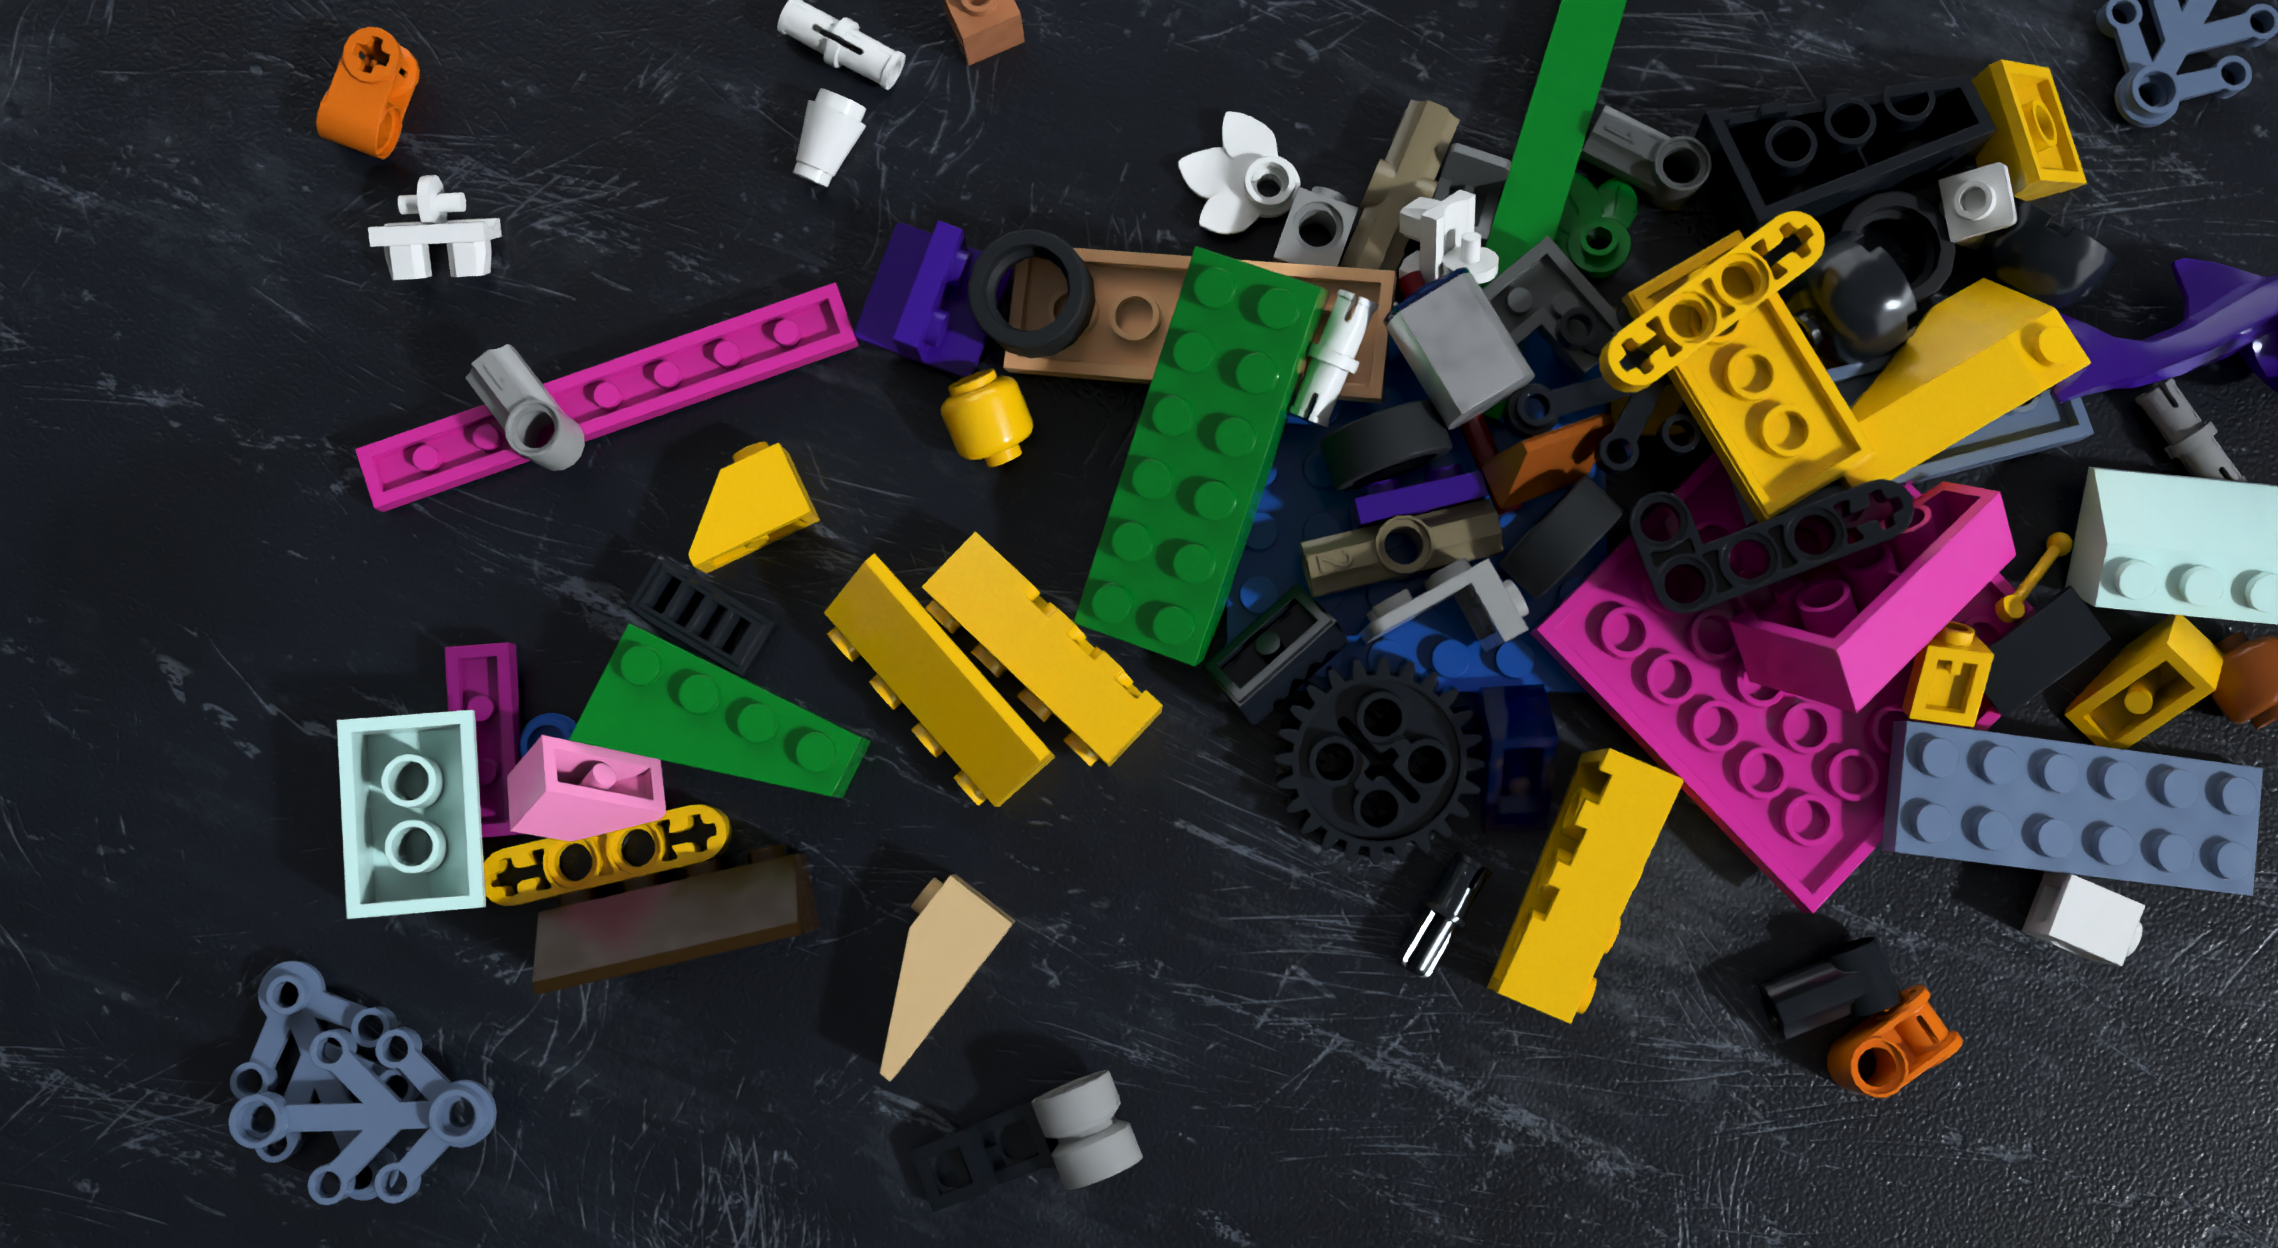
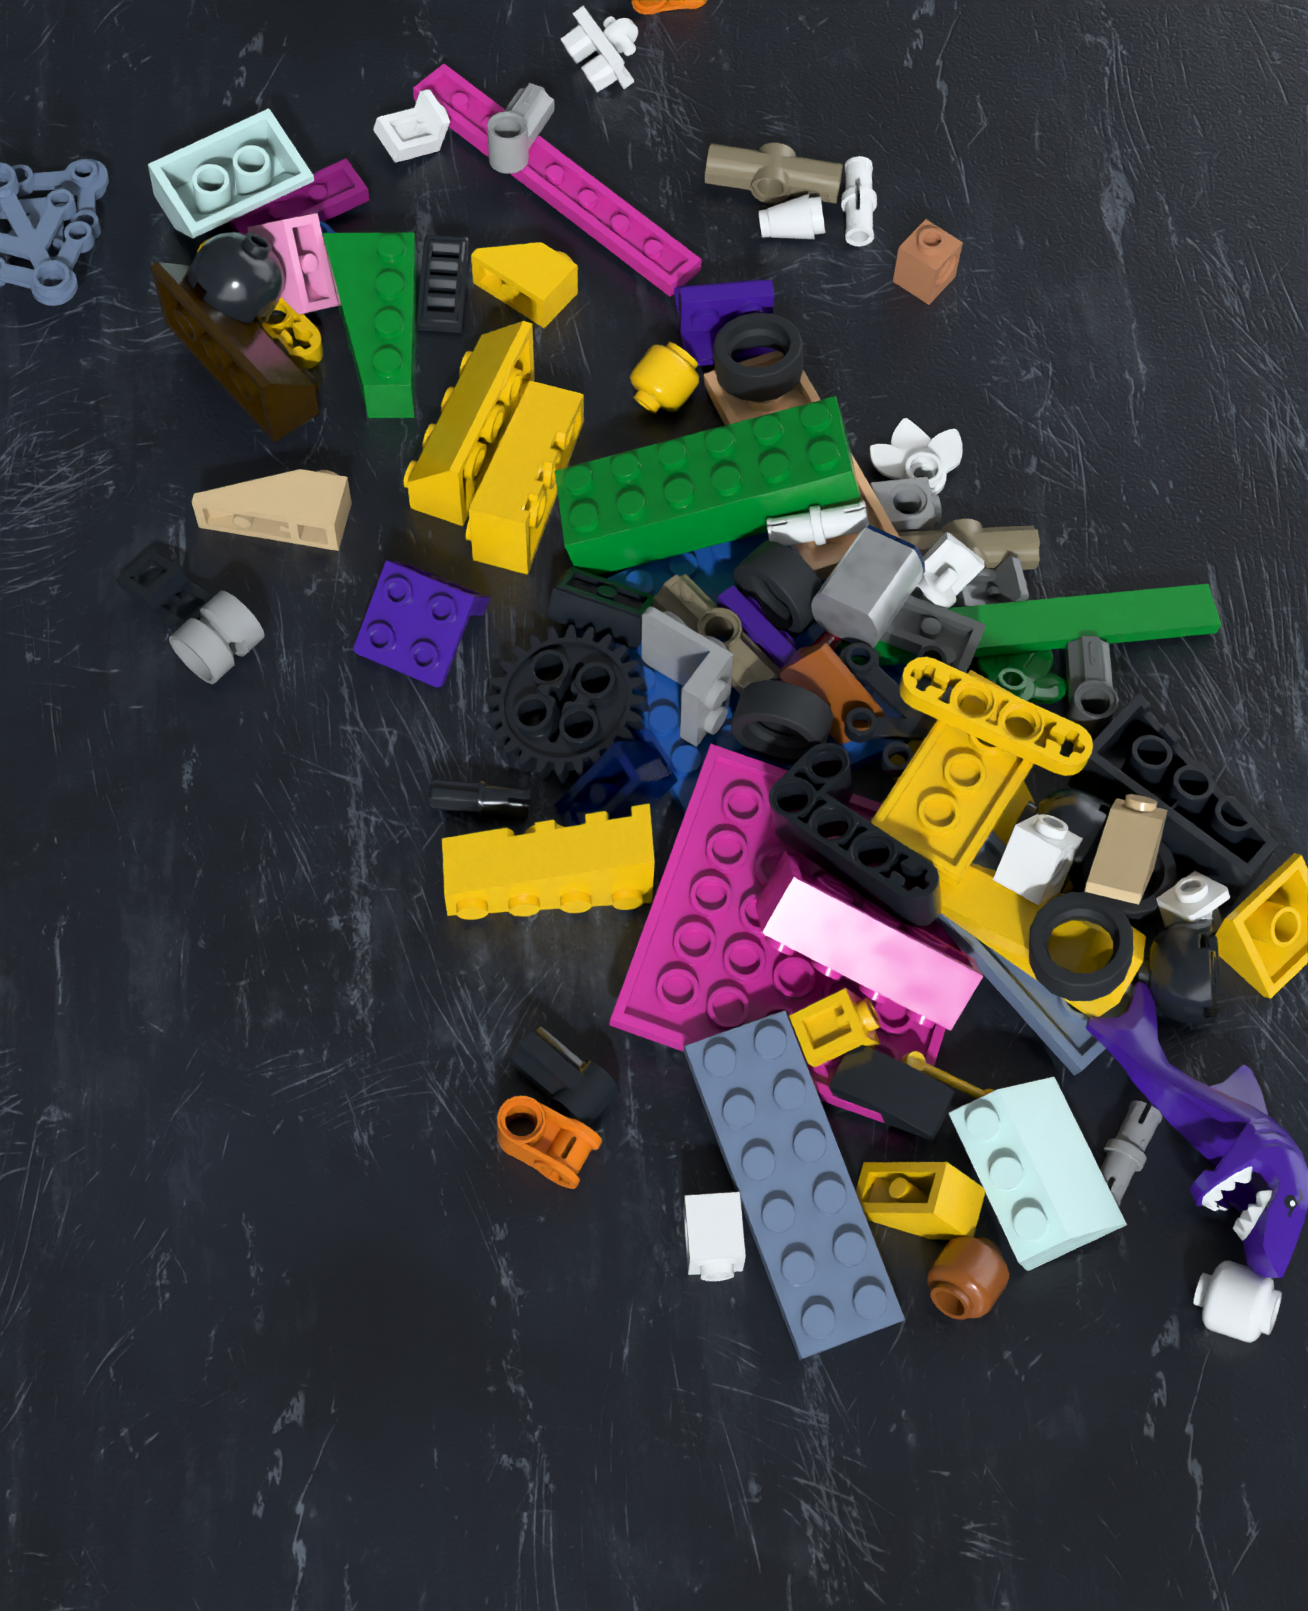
camera: 60 degrees right, 20 degrees down
(440, 538) = (414, 130): none -> white bracket
(593, 884) = (239, 275): none -> black cylinder
(746, 123) = (773, 173): none -> dark tan piece
(1173, 872) = (417, 622): none -> dark purple bracket
(1893, 352) = (1038, 858): none -> white brick
(1940, 252) = (1127, 849): none -> tan slope
(2088, 357) = (1080, 907): none -> black tyre

